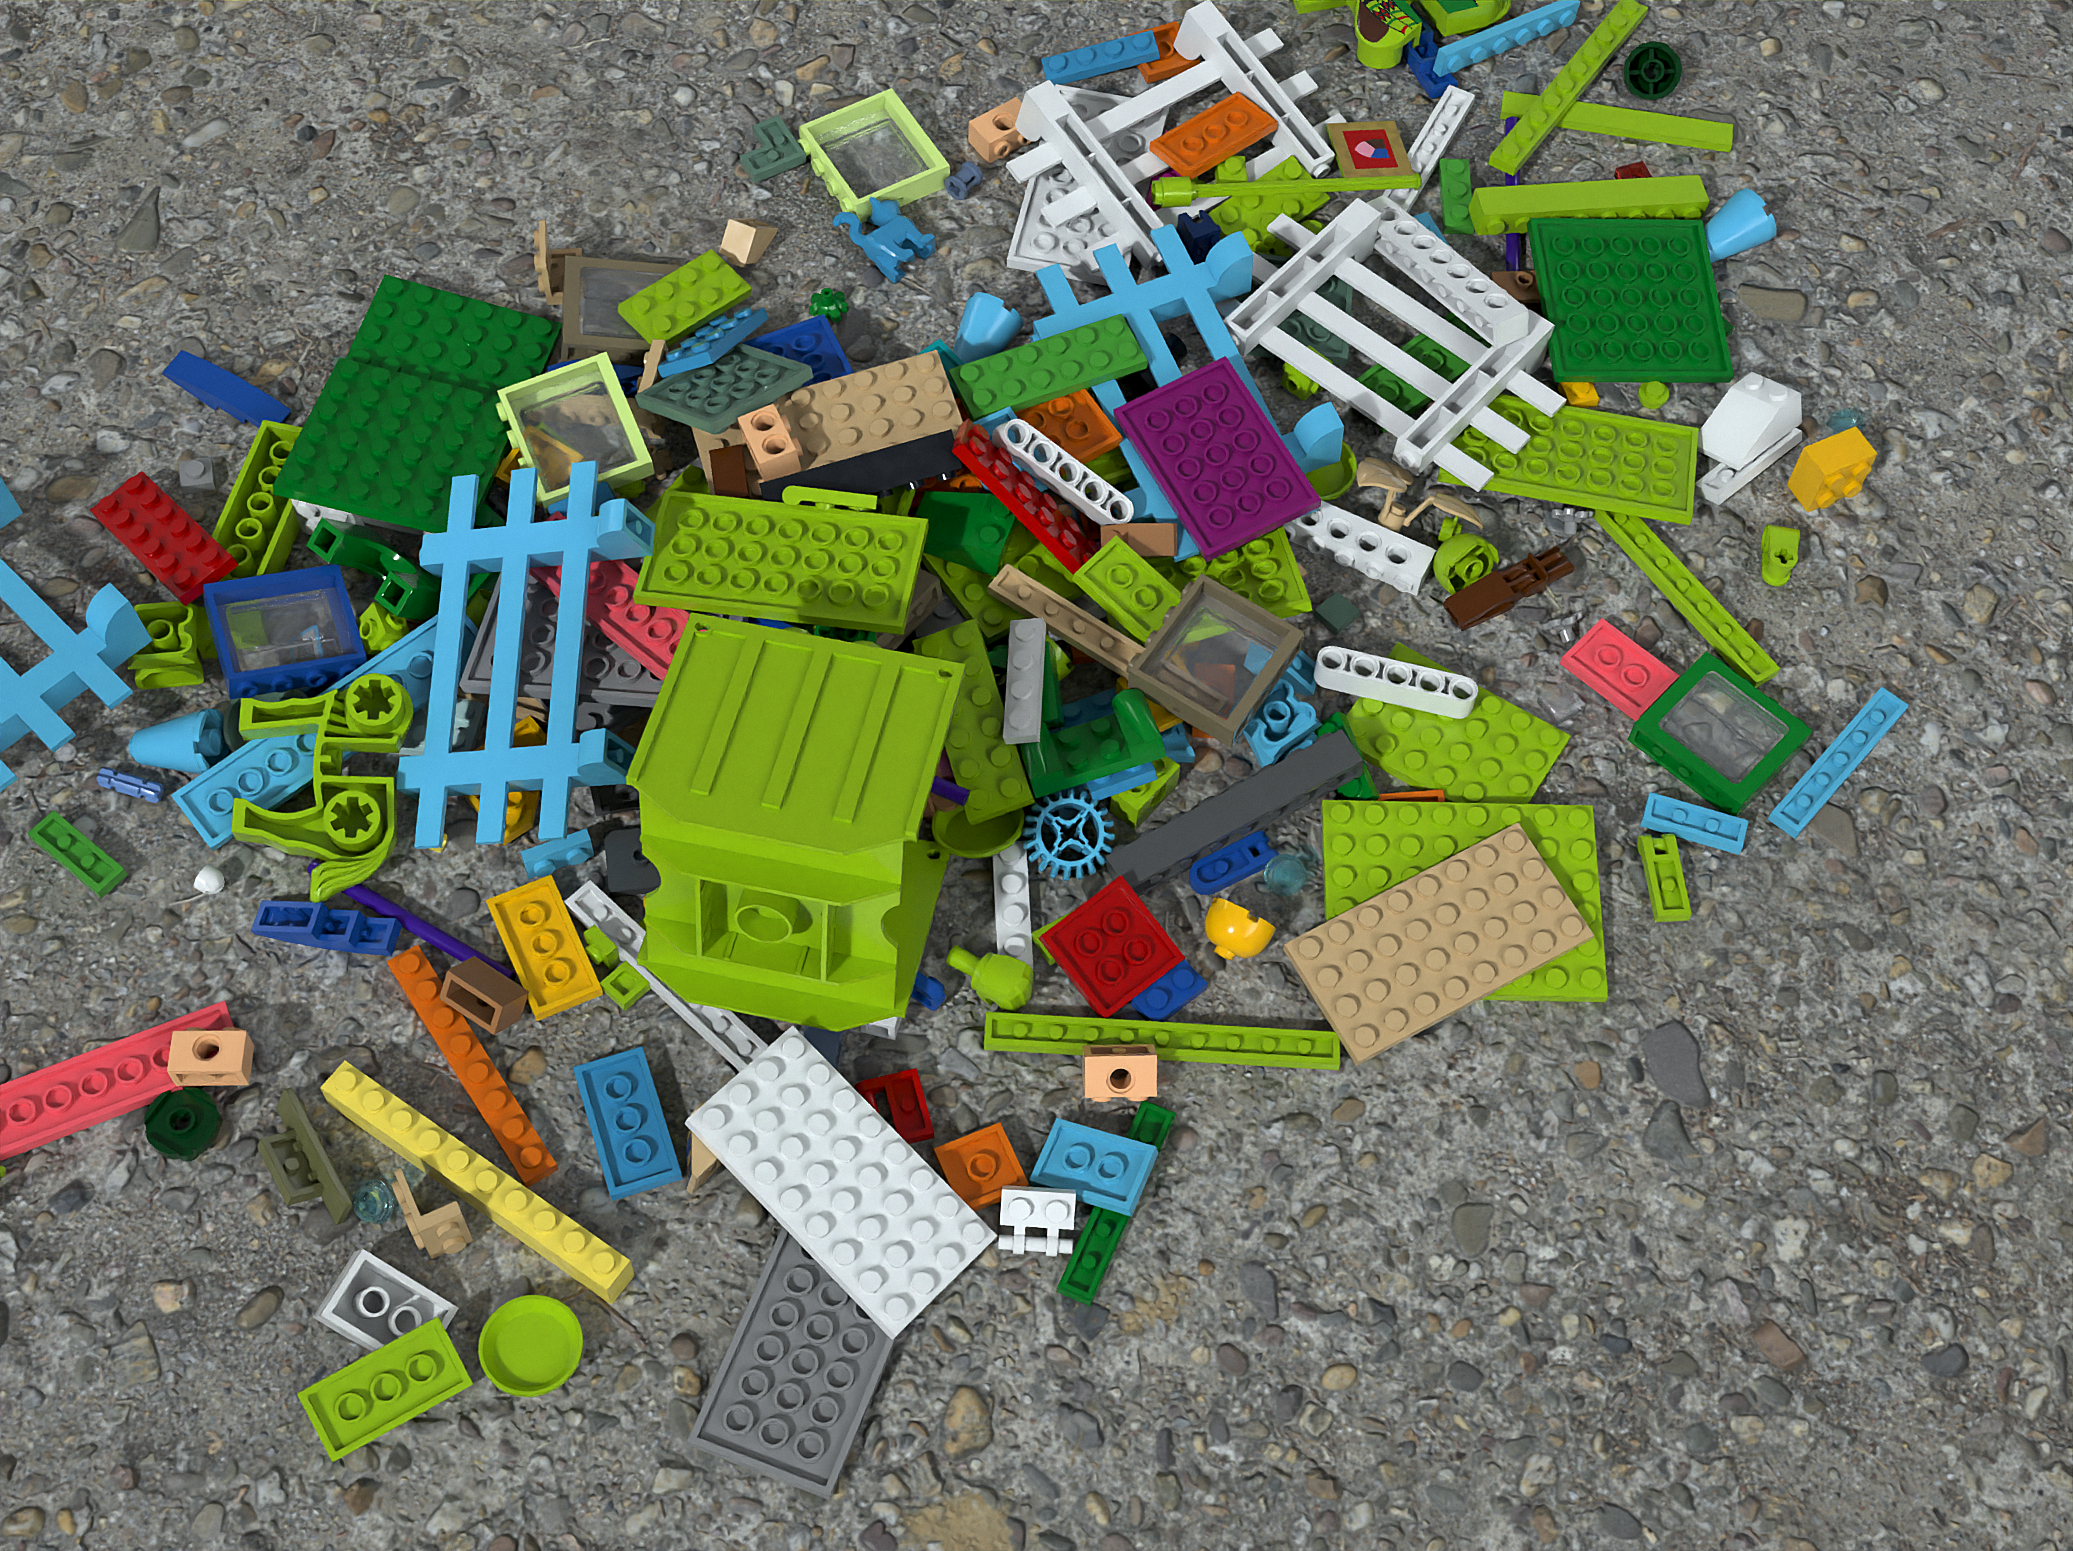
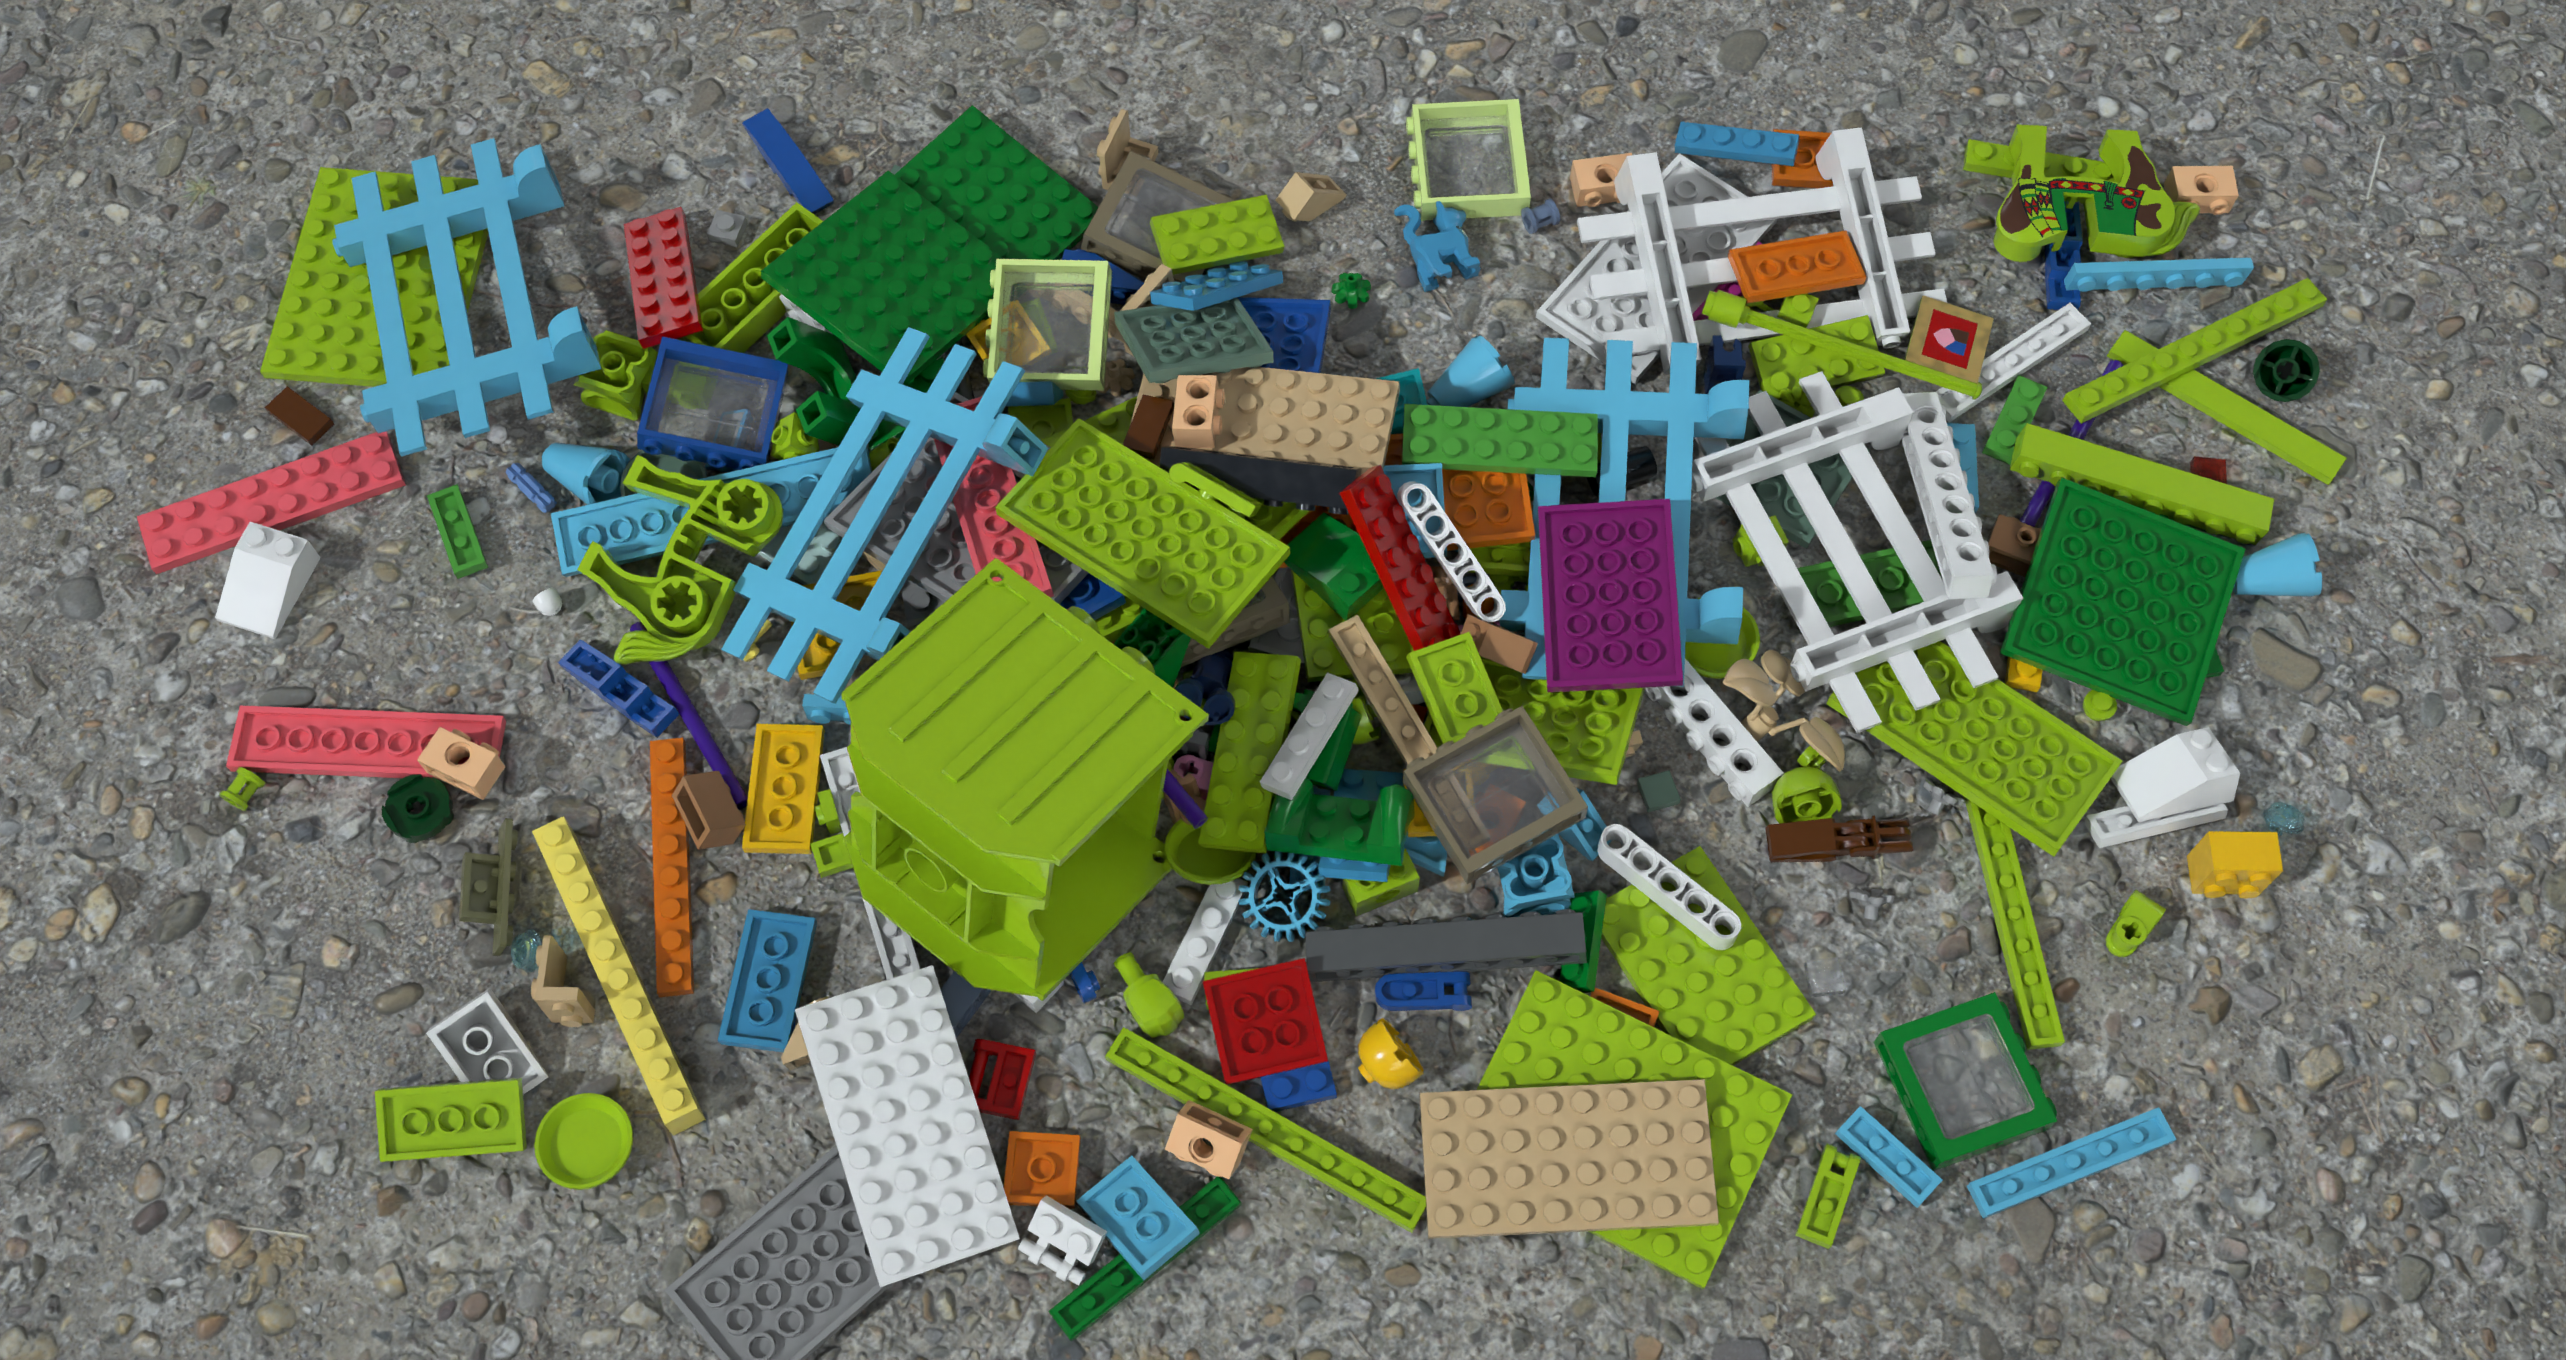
camera: 30 degrees right, 5 degrees up
(778, 151) = (1384, 122): sand green plate -> none
(1285, 874) = (1465, 1024): clear light blue hat -> none
(1619, 669) = (1902, 969): coral plate -> none

